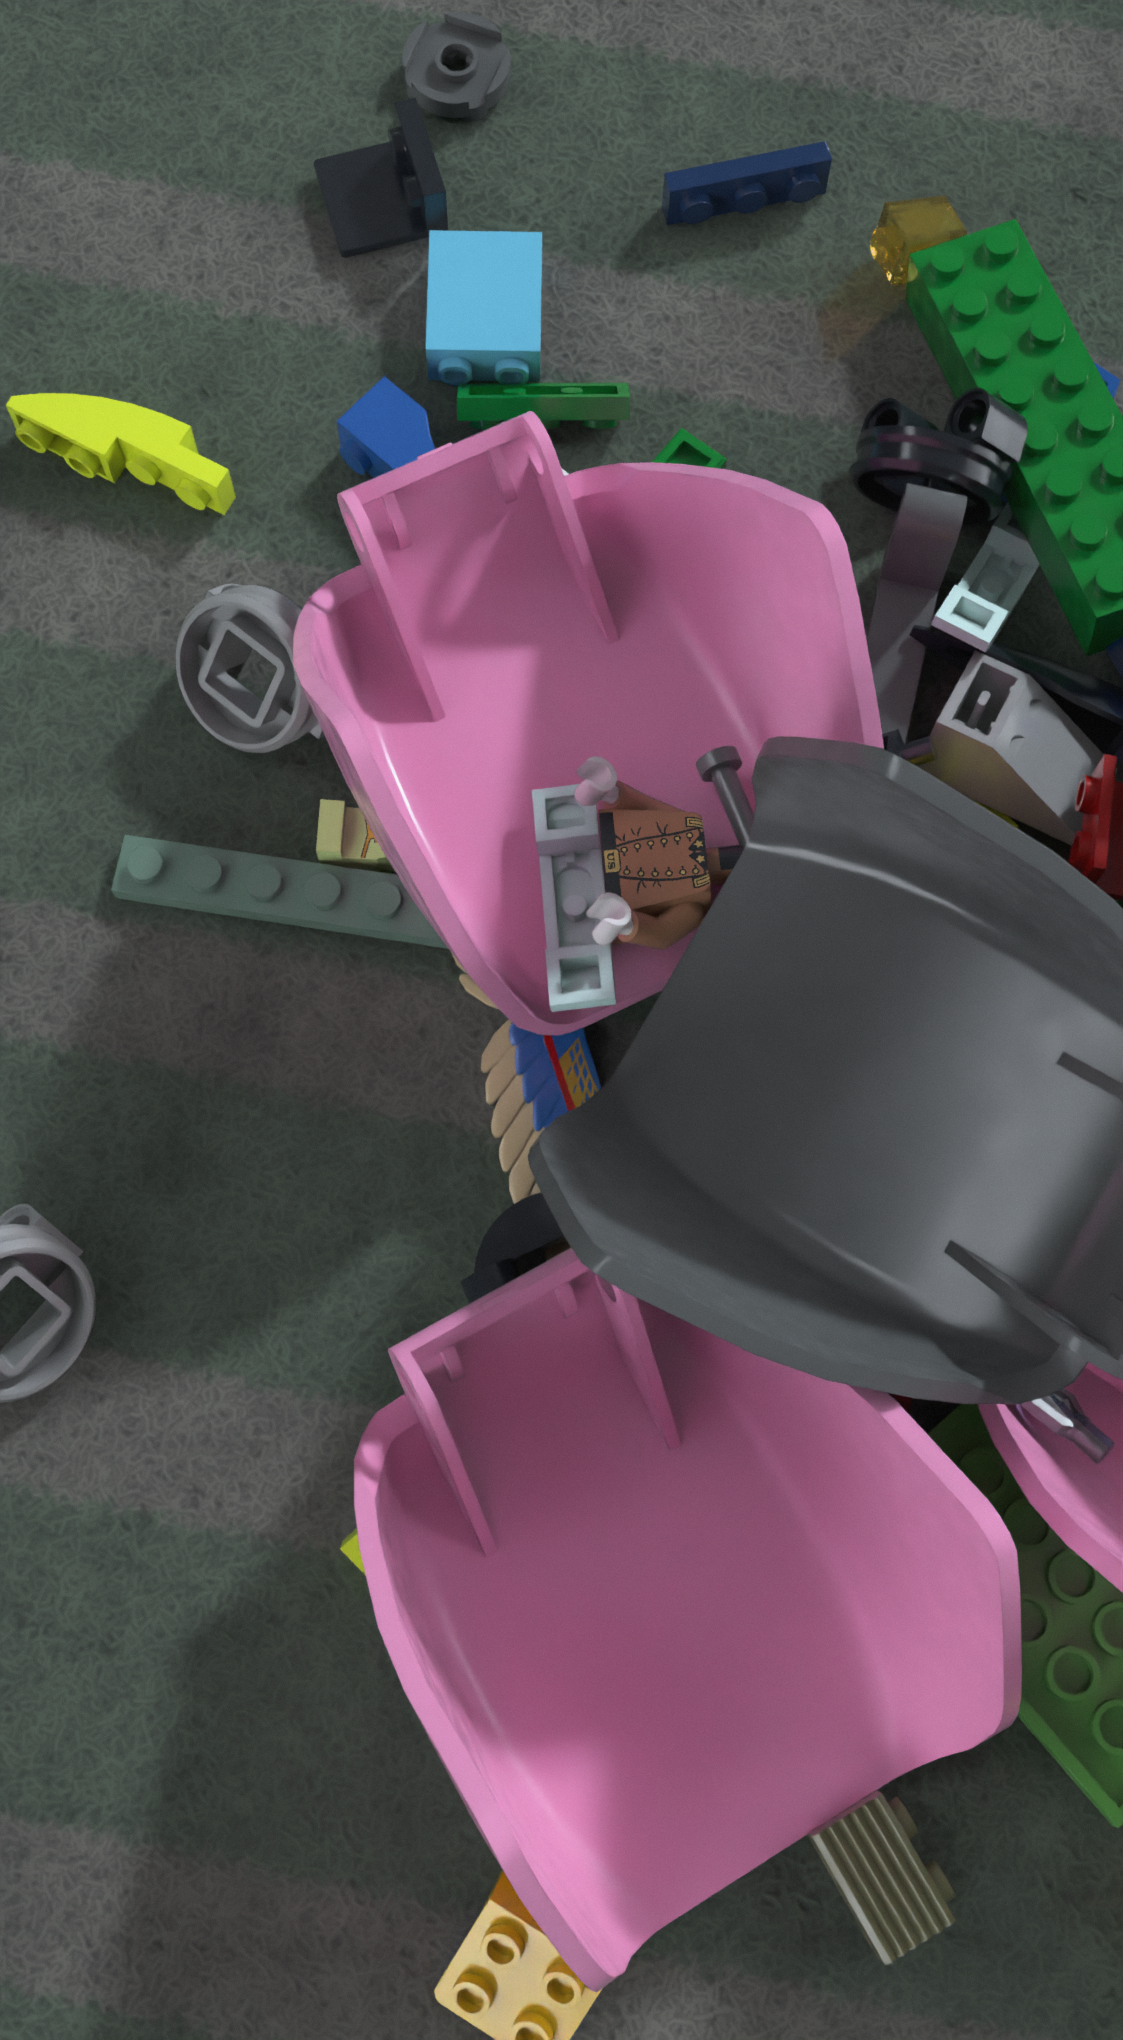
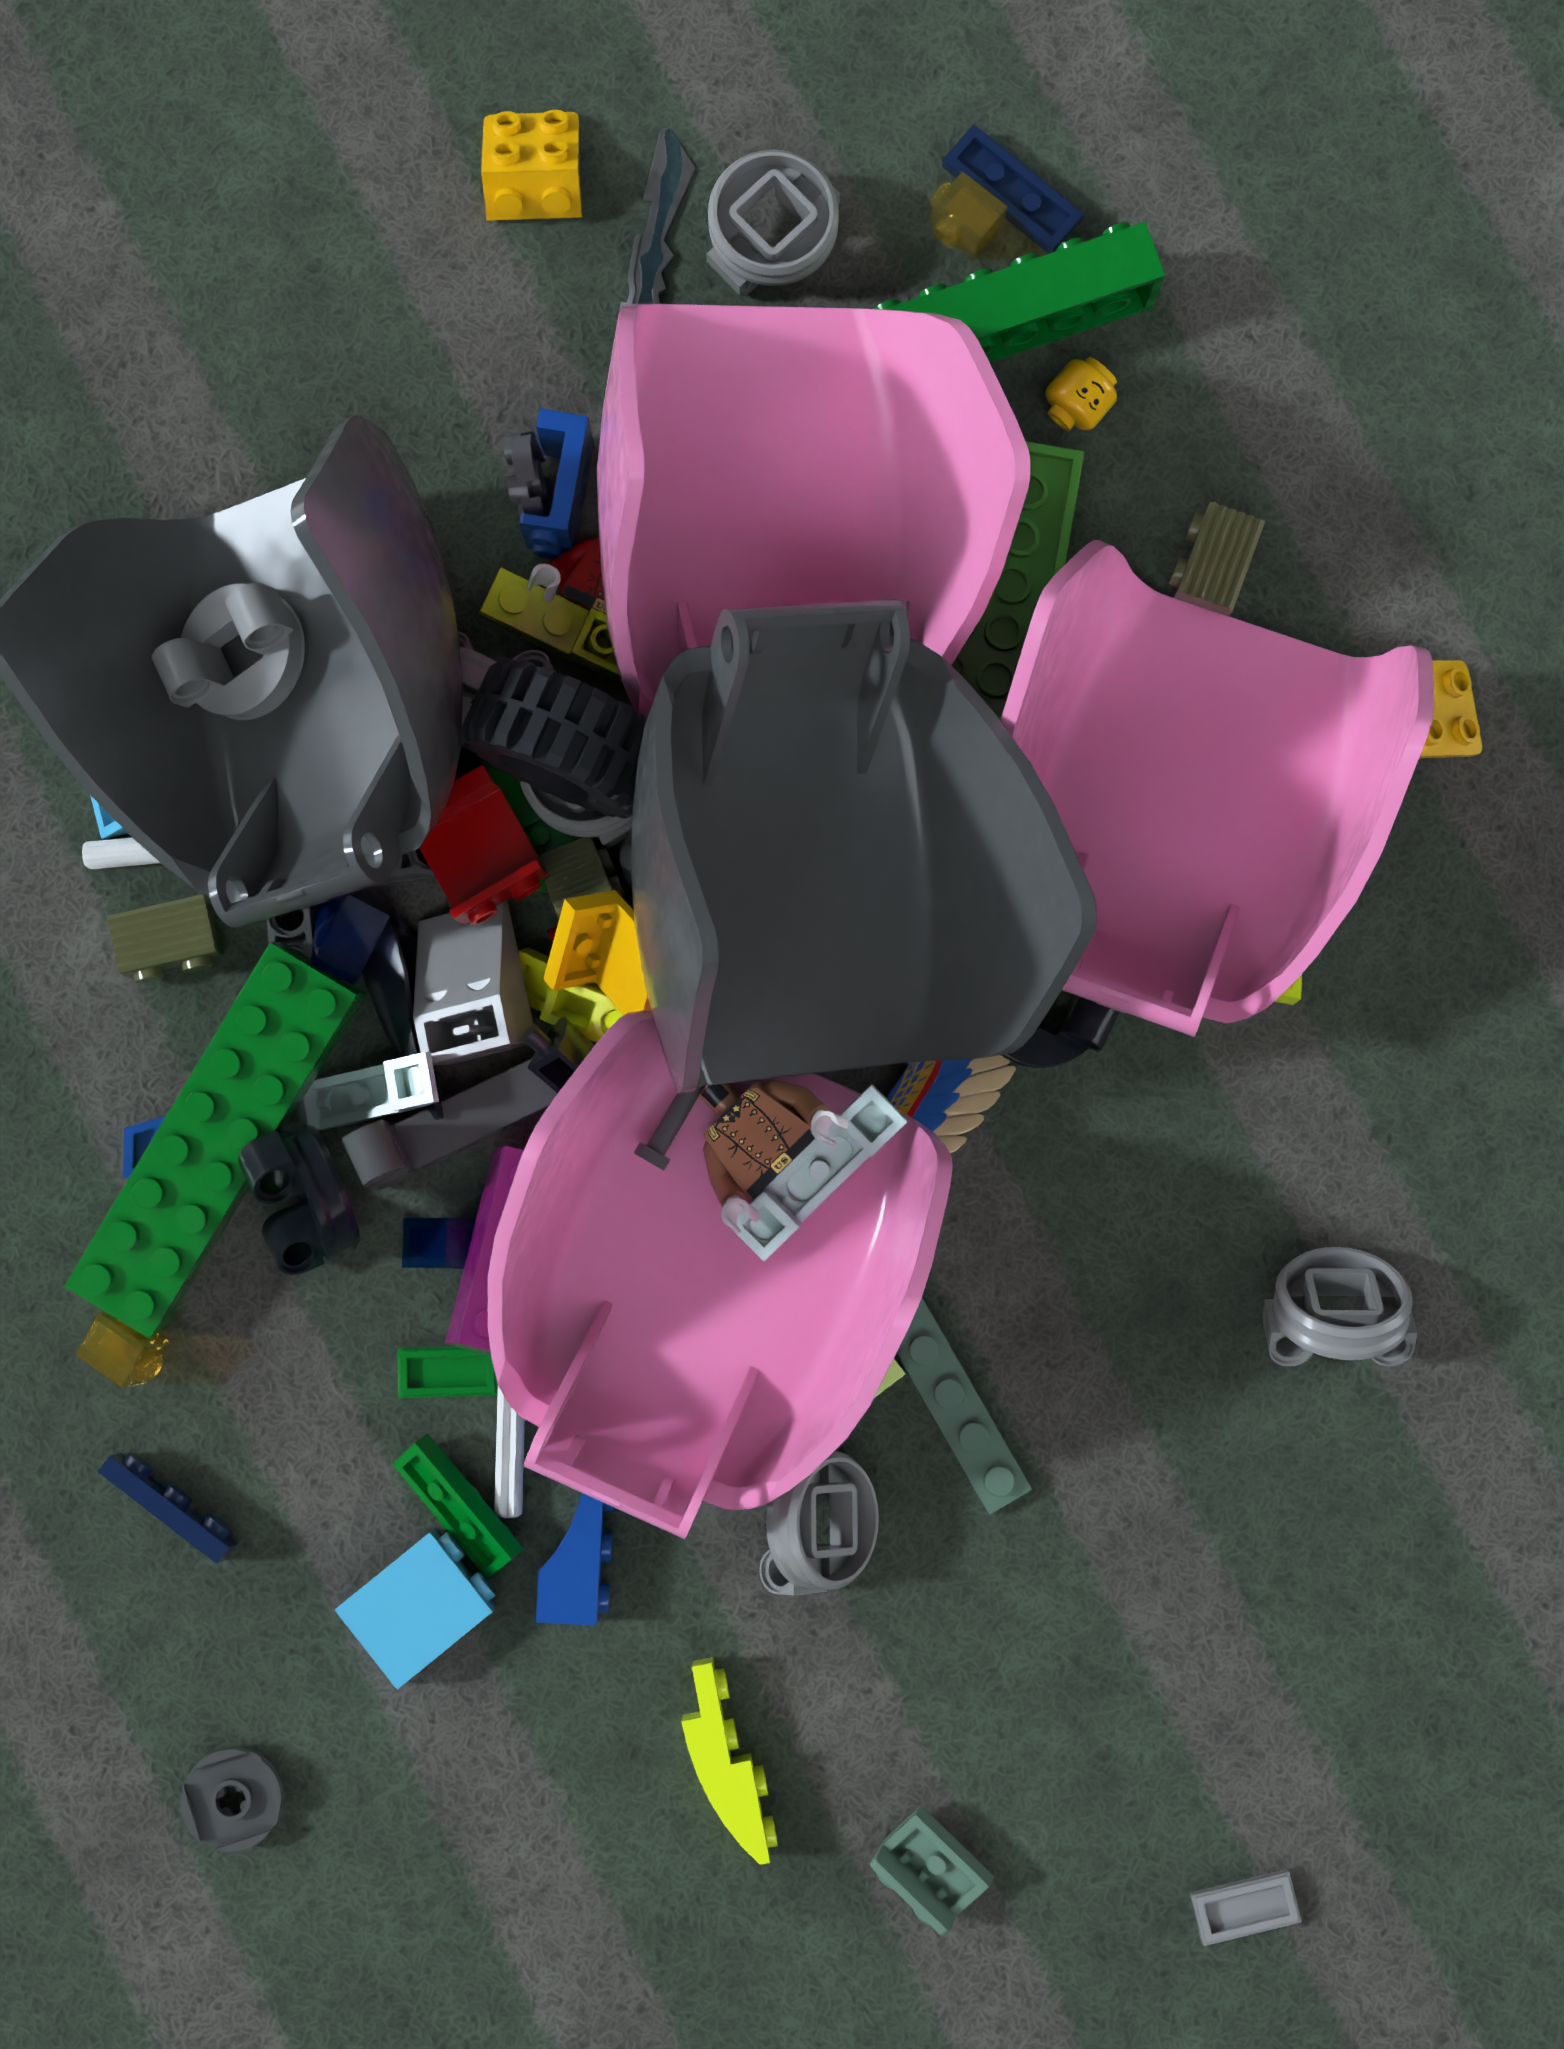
camera: 130 degrees left, 10 degrees up
(385, 190) = (381, 1761): black bracket -> none

